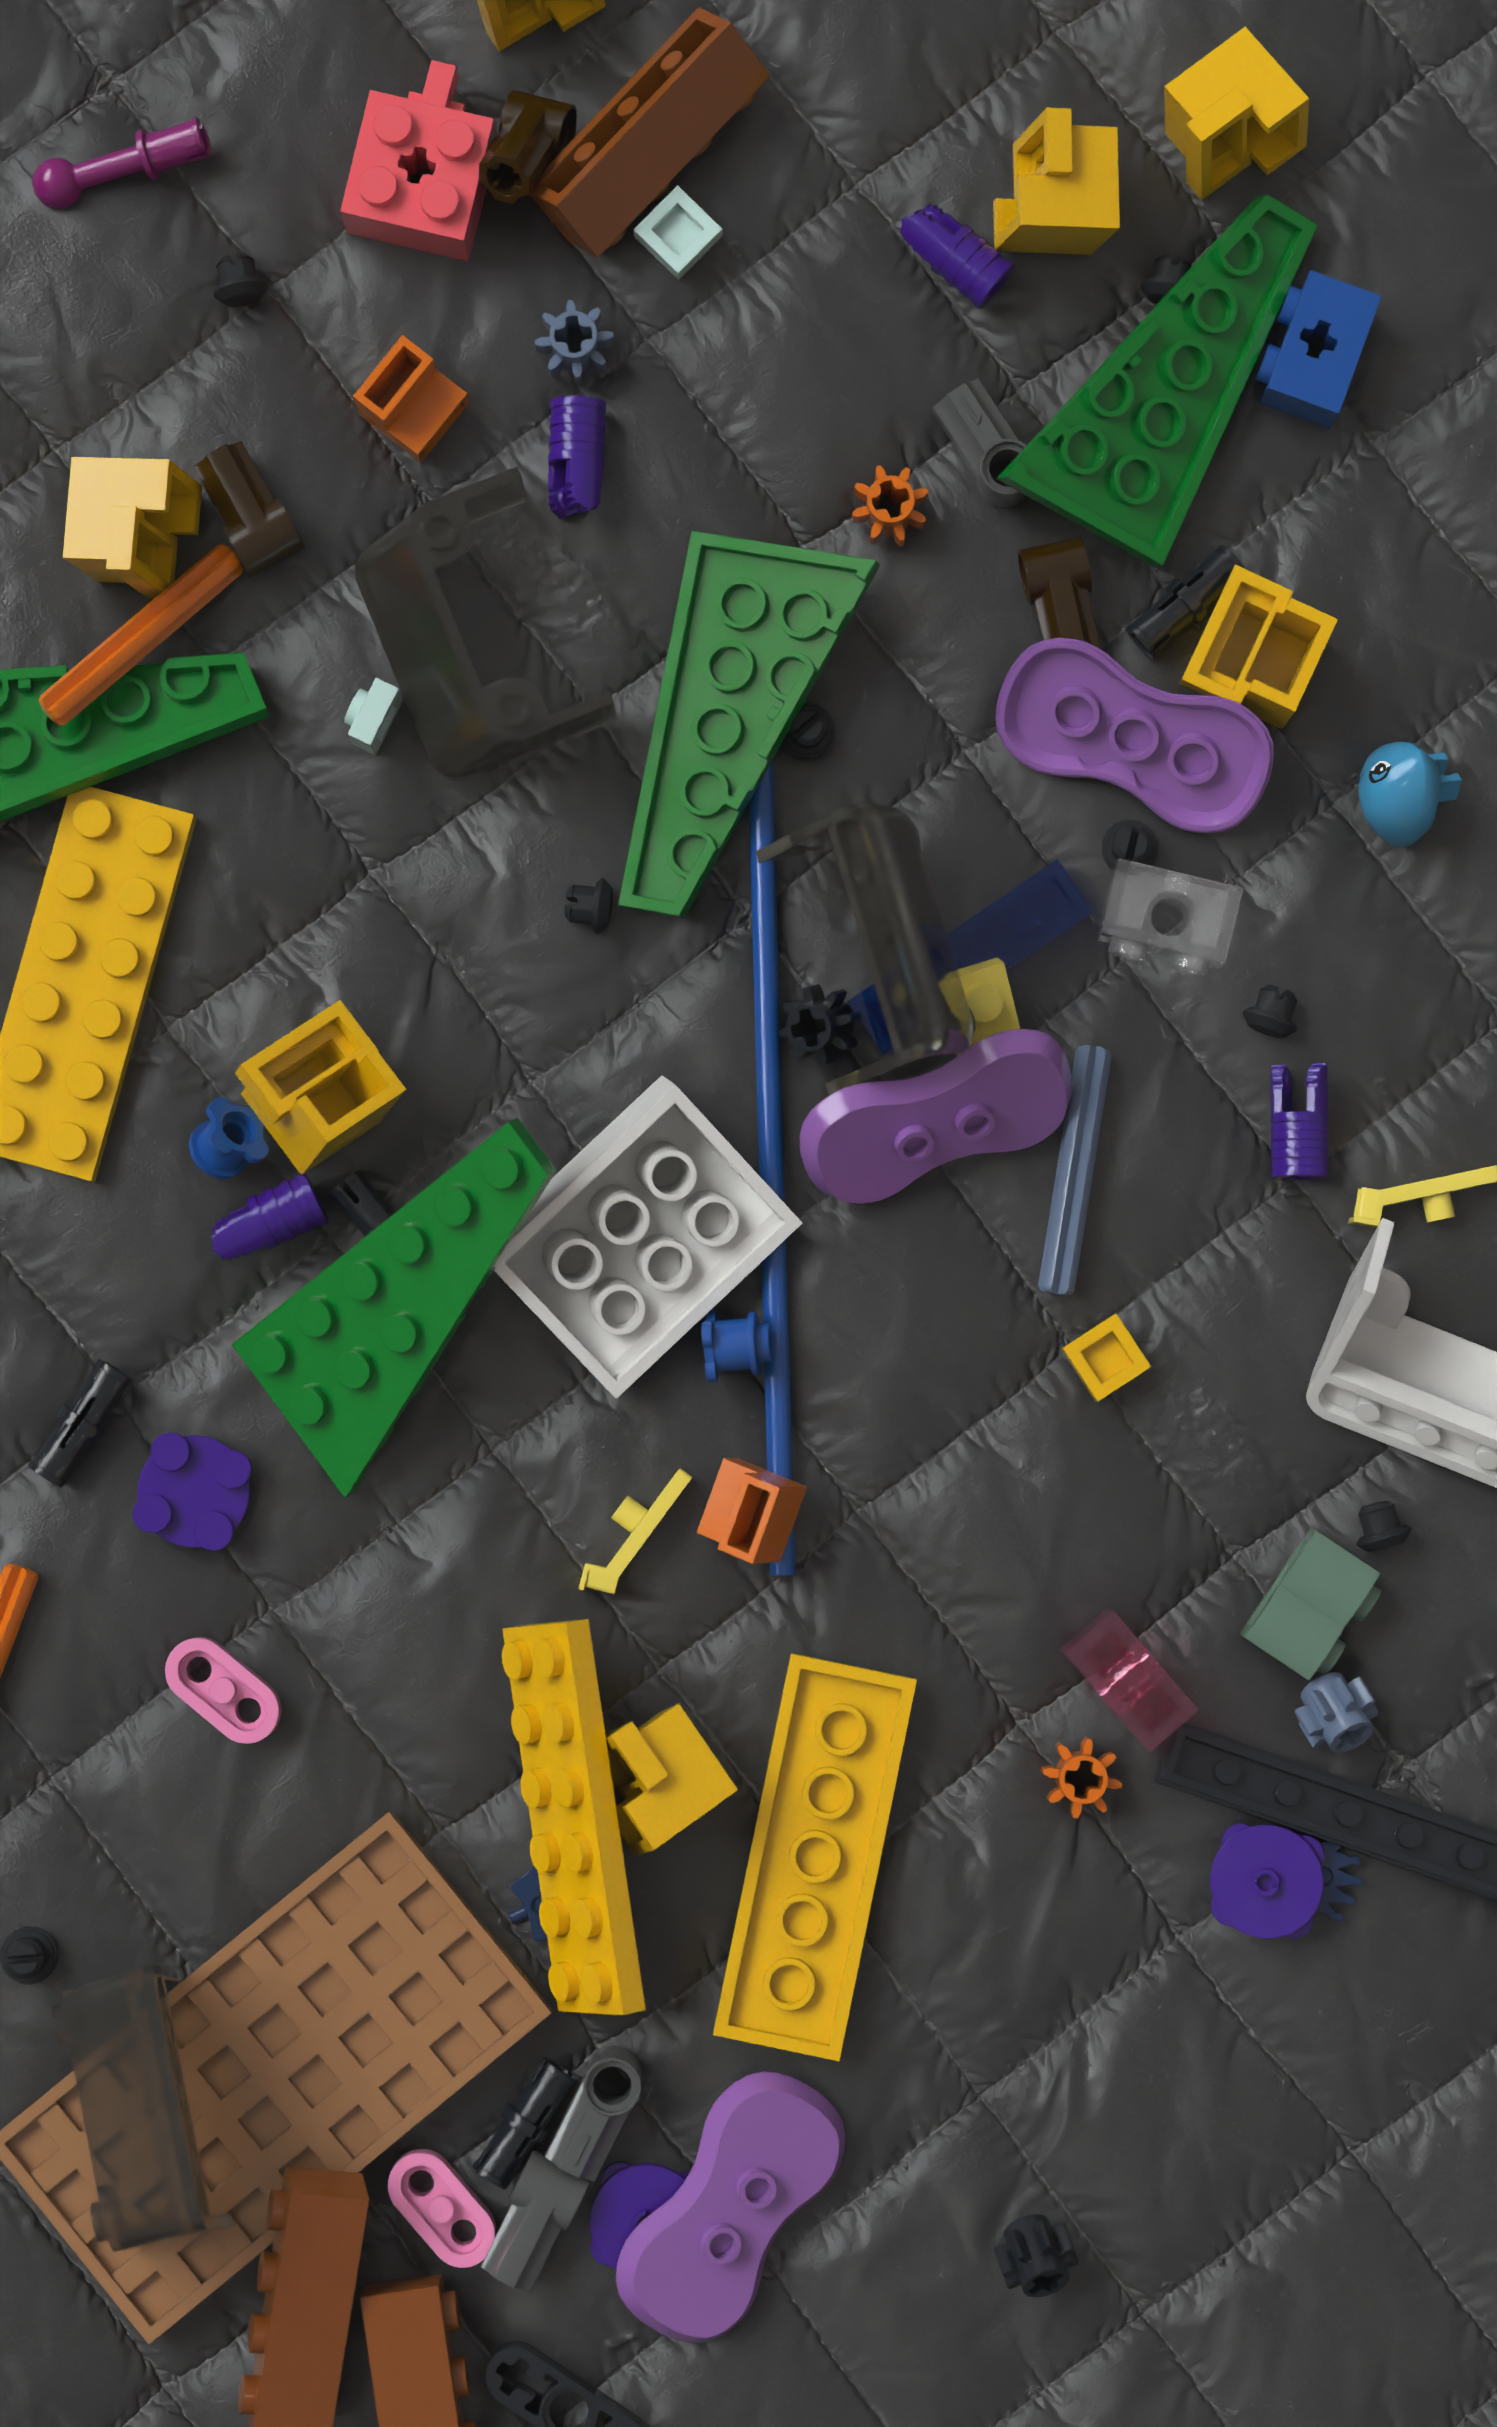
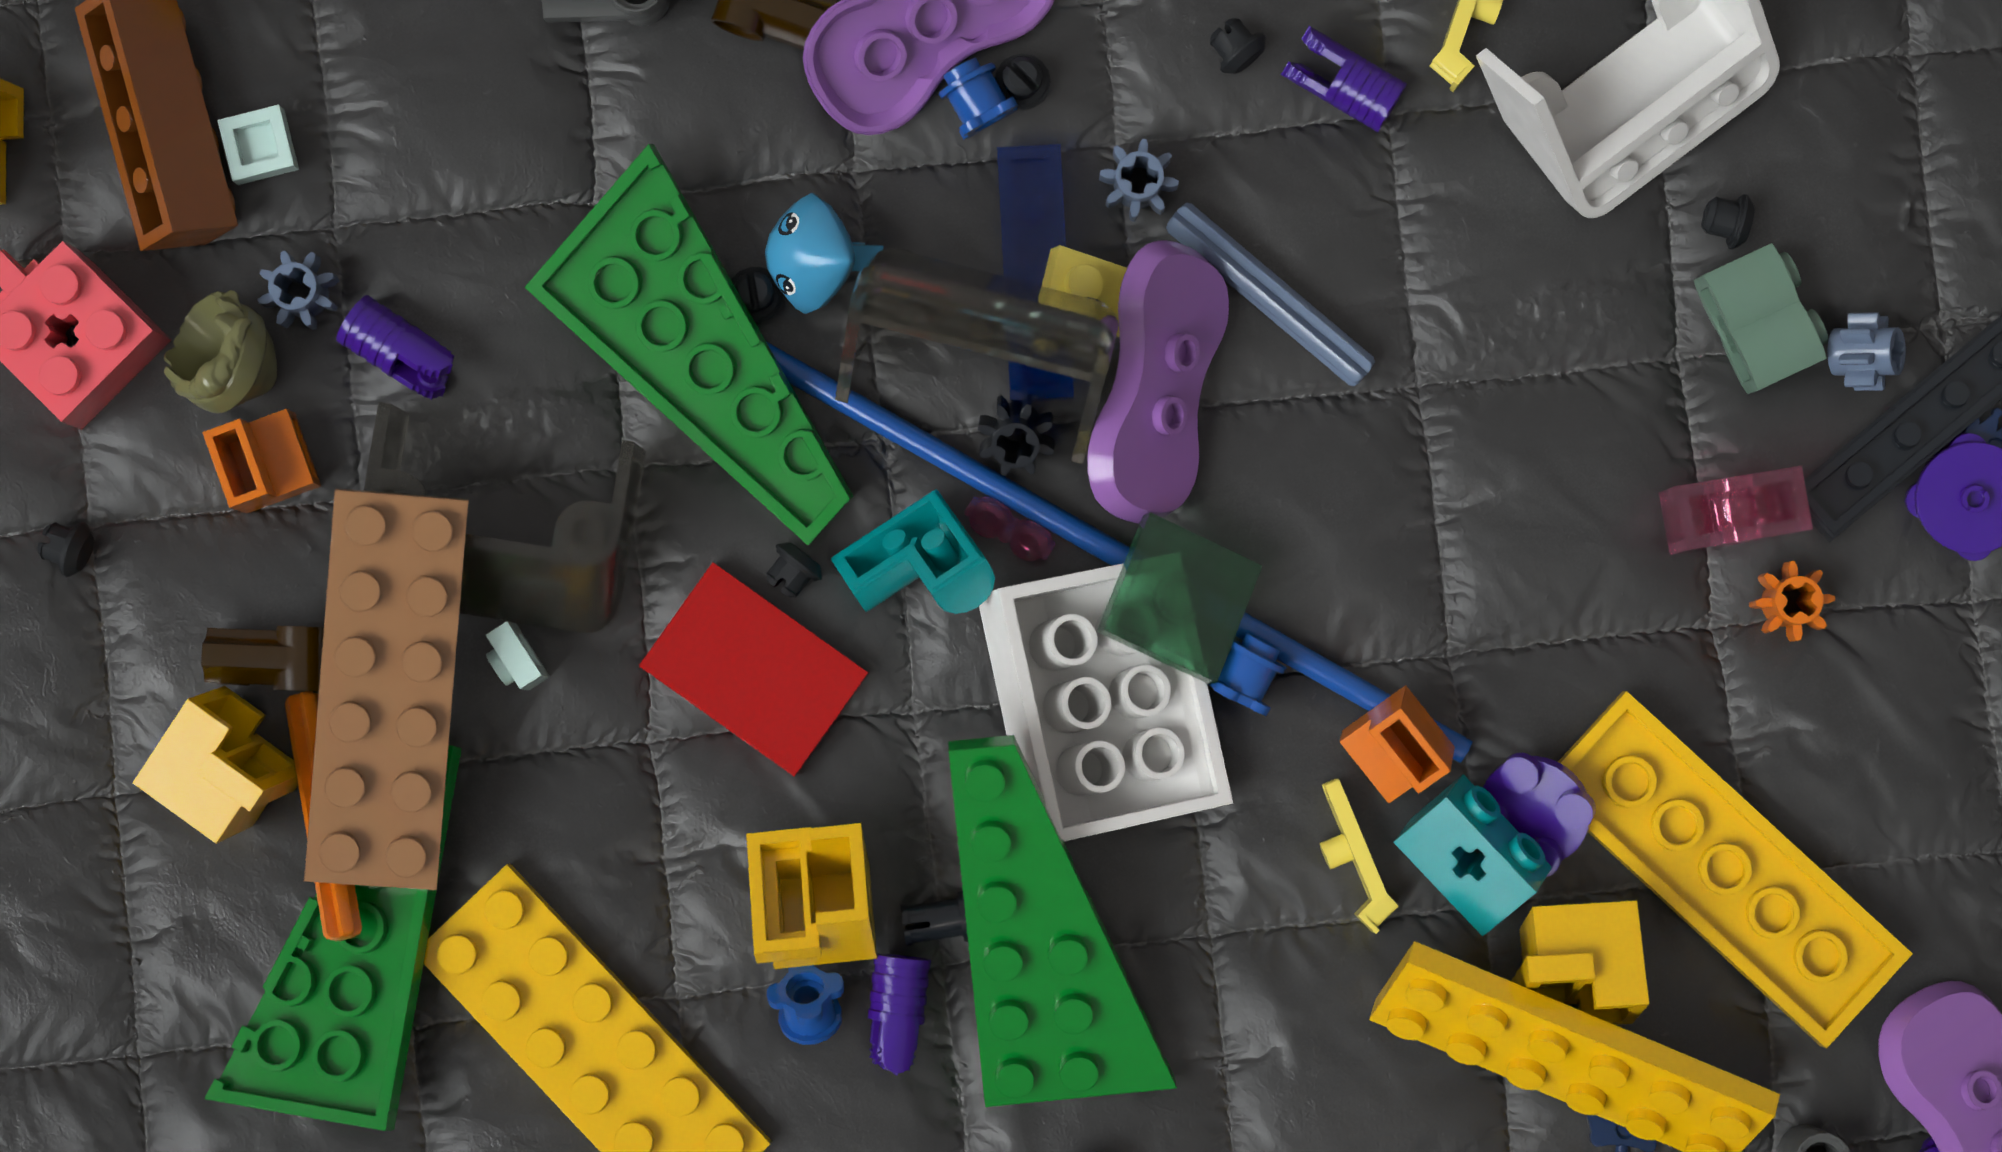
camera: 55 degrees left, 0 degrees up
(278, 620) = (385, 689): none -> medium nougat plate
(479, 311) = (221, 354): none -> olive hair
(485, 923) = (753, 669): none -> red tile
(528, 138) = (98, 222): dark brown piece -> none
(673, 995) = (915, 544): none -> teal brick
(696, 1631) = (1479, 885): none -> teal brick
(737, 1051) = (993, 519): none -> clear pink piece
(762, 1247) = (1179, 598): none -> clear green tile
(764, 1661) = (1543, 802): none -> dark purple piece
(870, 757) = (813, 254): none -> dark azure piece
(899, 492) = (615, 121): orange gear -> none
(1090, 815) = (976, 97): none -> blue brick
(1106, 1357) = (1446, 364): yellow plate -> none
(1109, 980) = (1154, 172): none -> sand blue gear
(1207, 912) = (1113, 47): clear brick -> none

